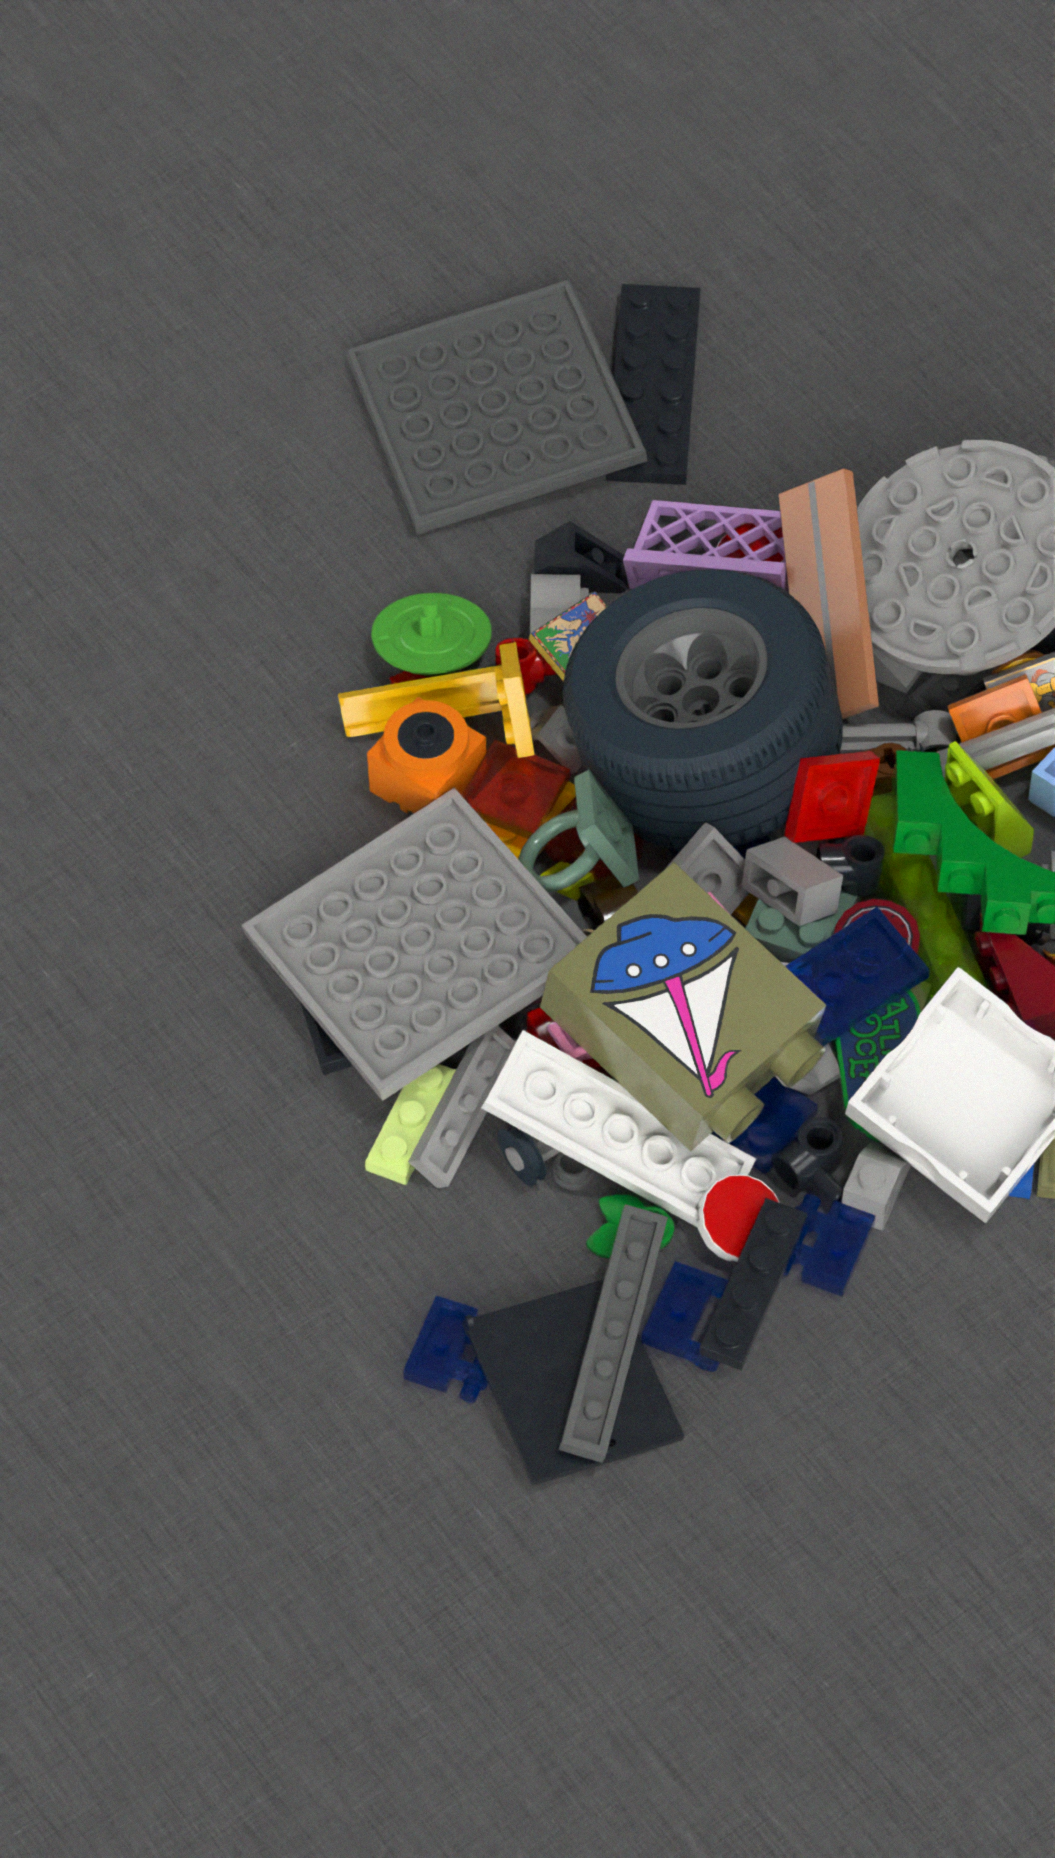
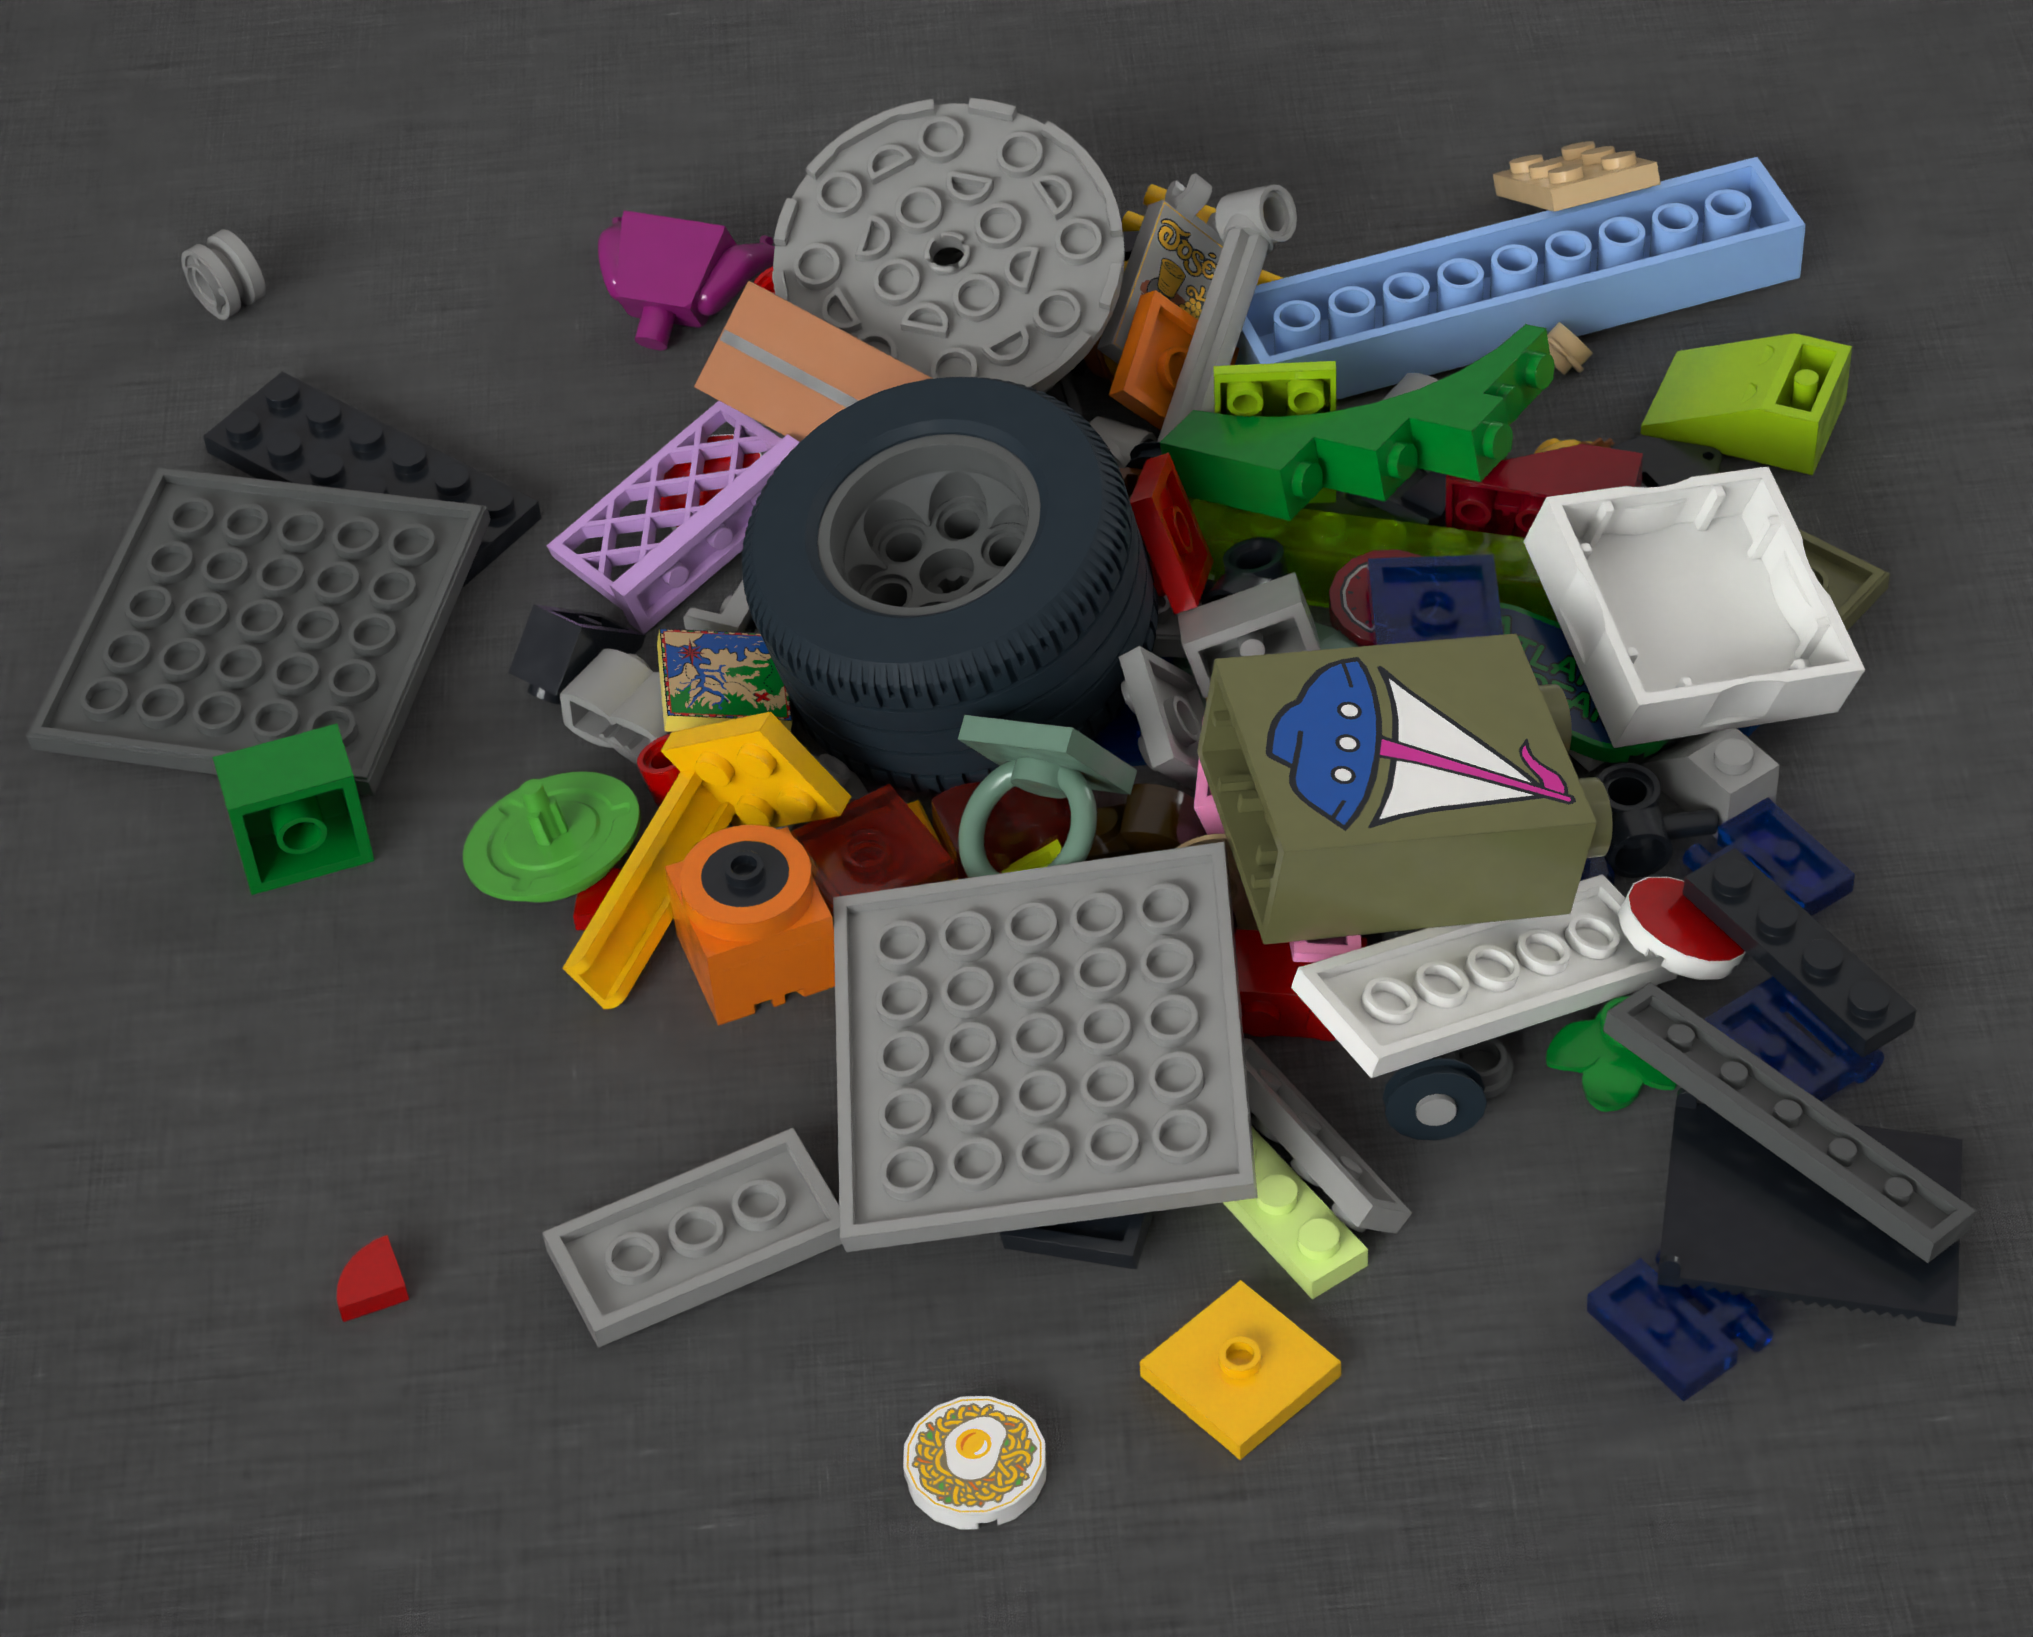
camera: 55 degrees left, 10 degrees down
(95, 735) = (370, 1281): none -> red tile
(153, 1068) = (975, 1462): none -> tile
(210, 859) = (695, 1237): none -> light grey plate
(291, 1158) = (1240, 1369): none -> yellow plate
(359, 503) = (294, 808): none -> green brick
(749, 209) = (223, 274): none -> light grey wheel
(909, 418) = (675, 271): none -> magenta torso

